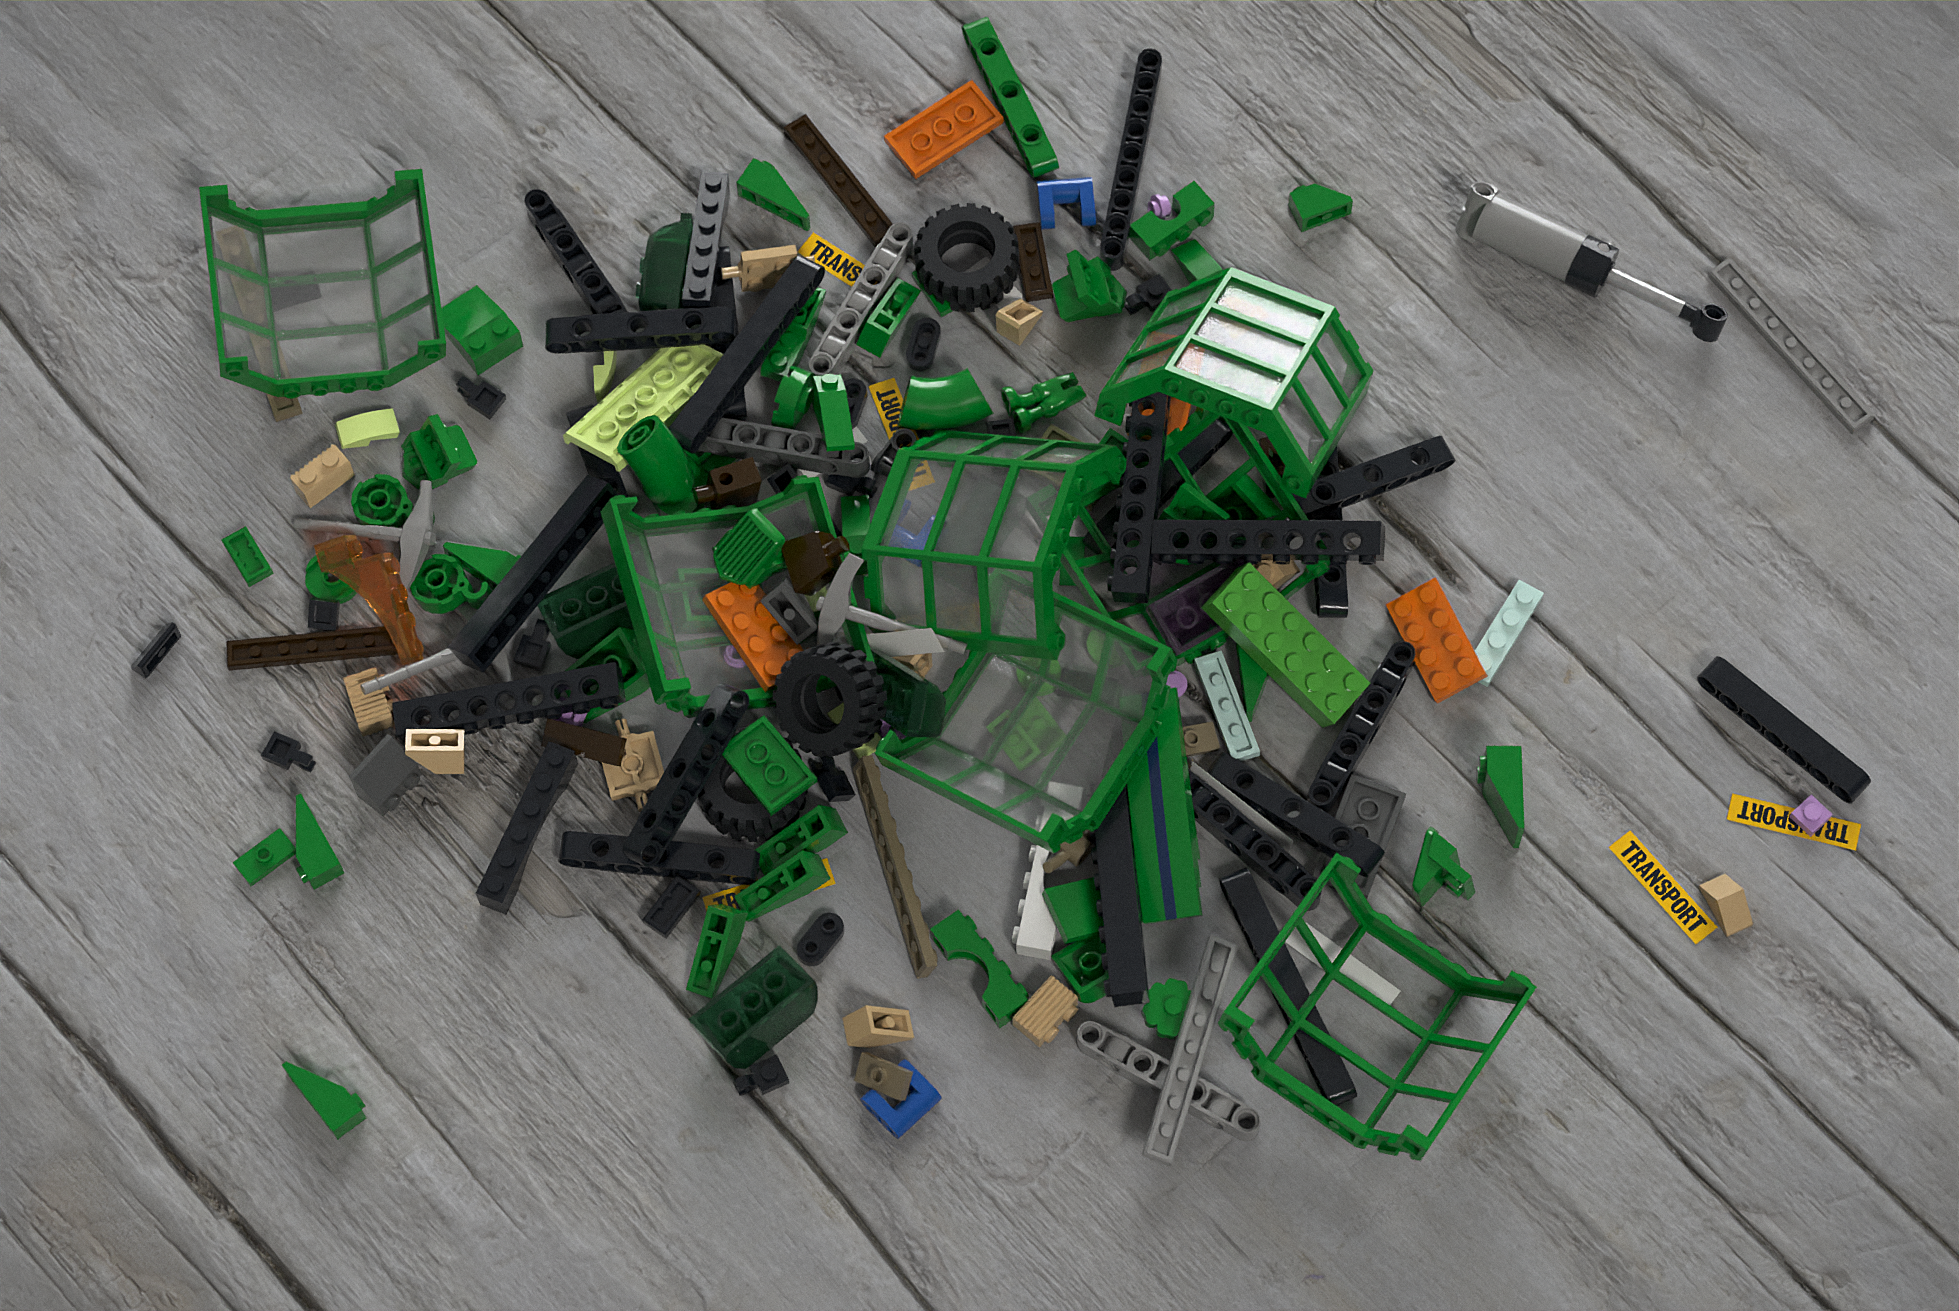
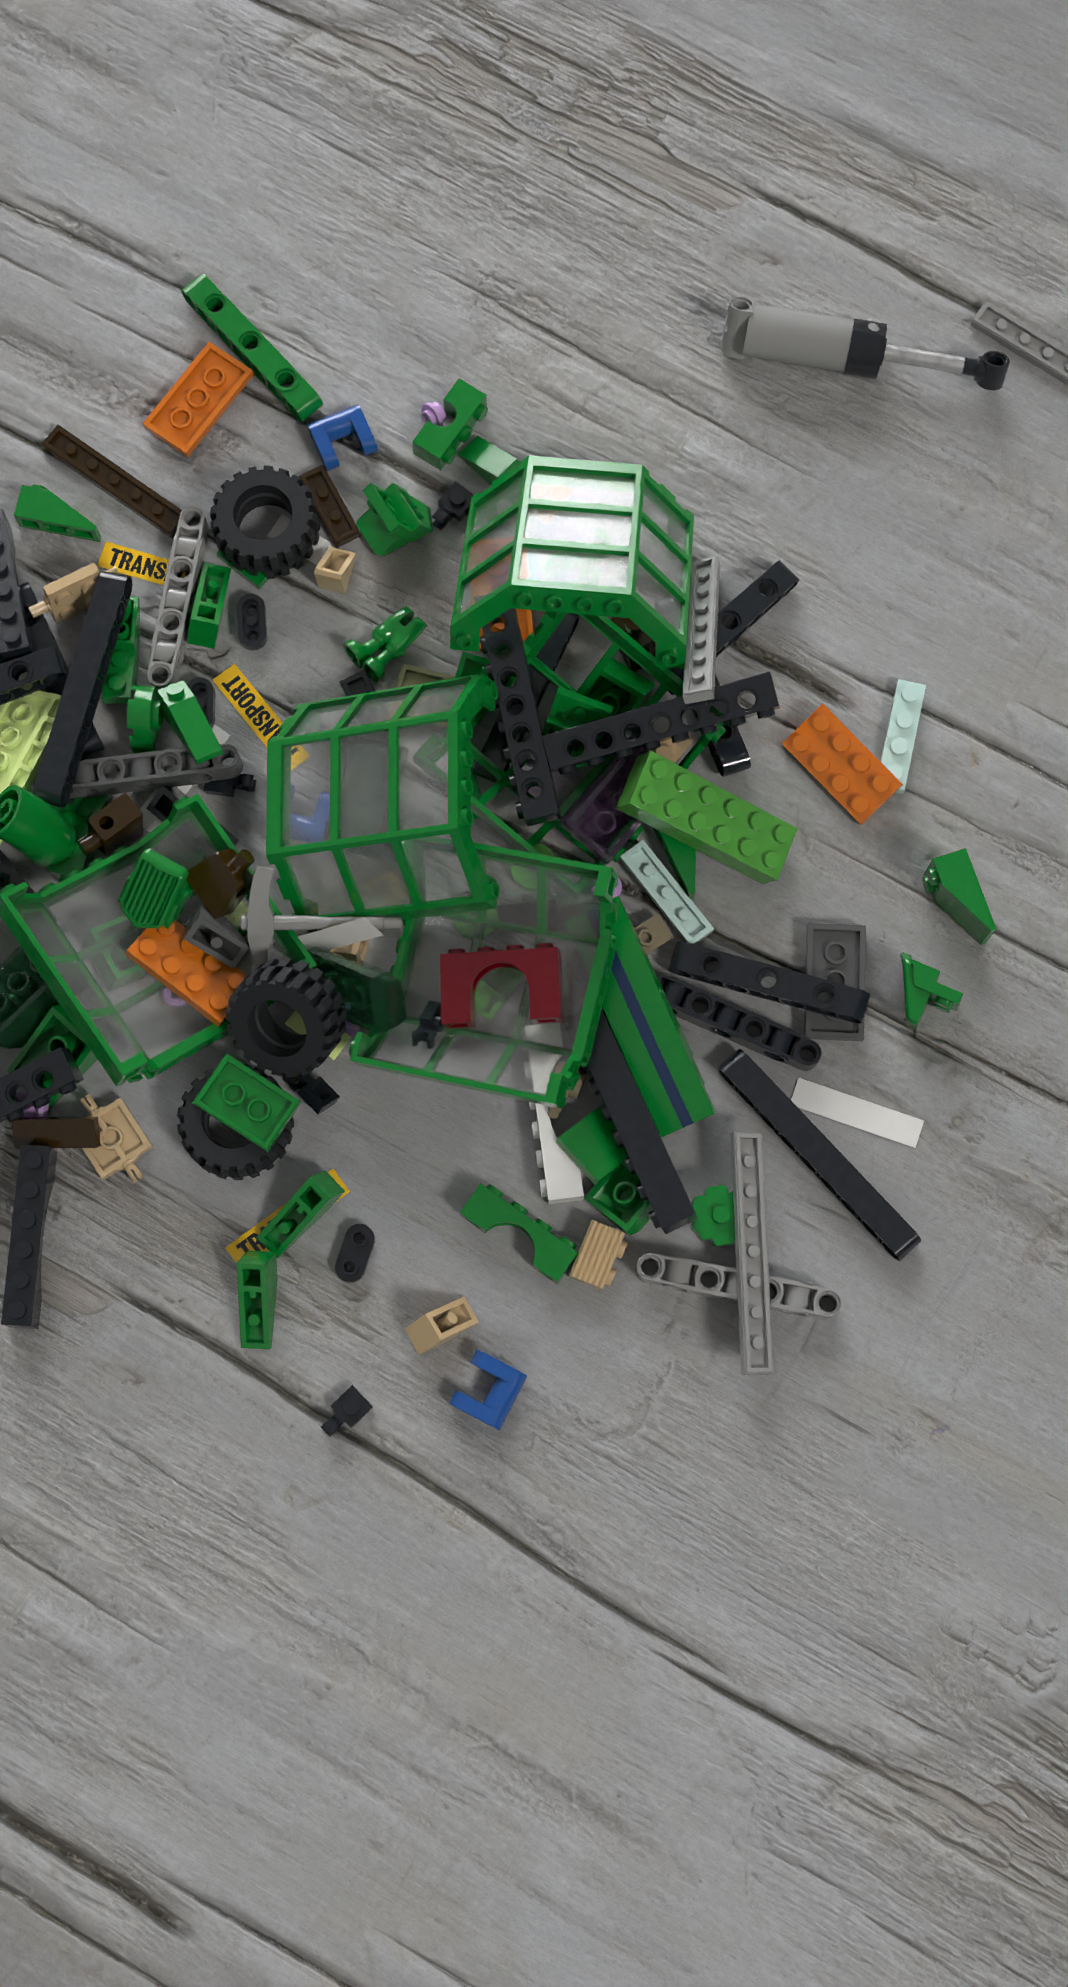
camera: 20 degrees left, 10 degrees up
(671, 906) = (198, 1269): black plate -> none
(682, 858) = (147, 1228): black beam -> none
(686, 775) = (170, 1140): black beam -> none
(757, 1009) = (318, 1350): clear green windscreen -> none
(809, 833) = (302, 1161): green slope -> none
(855, 525) = (249, 827): green slope -> none
(883, 1076) = (464, 1374): dark tan plate -> none
(884, 459) = (256, 749): dark grey piece -> none
(894, 866) = (402, 1157): dark tan plate -> none
(943, 402) = (291, 676): green brick -> none
(960, 750) = (429, 1025): none -> black plate
(1008, 711) = (464, 970): none -> dark red arch
(1131, 147) = (389, 362): black beam -> none
(1273, 832) = (740, 1000): white sticker -> none
(1317, 205) = (583, 367): green slope -> none
(1338, 471) = (702, 631): none -> light grey tile
(1342, 874) = (1044, 1092): green window -> none
(1362, 726) = (801, 873): black beam -> none

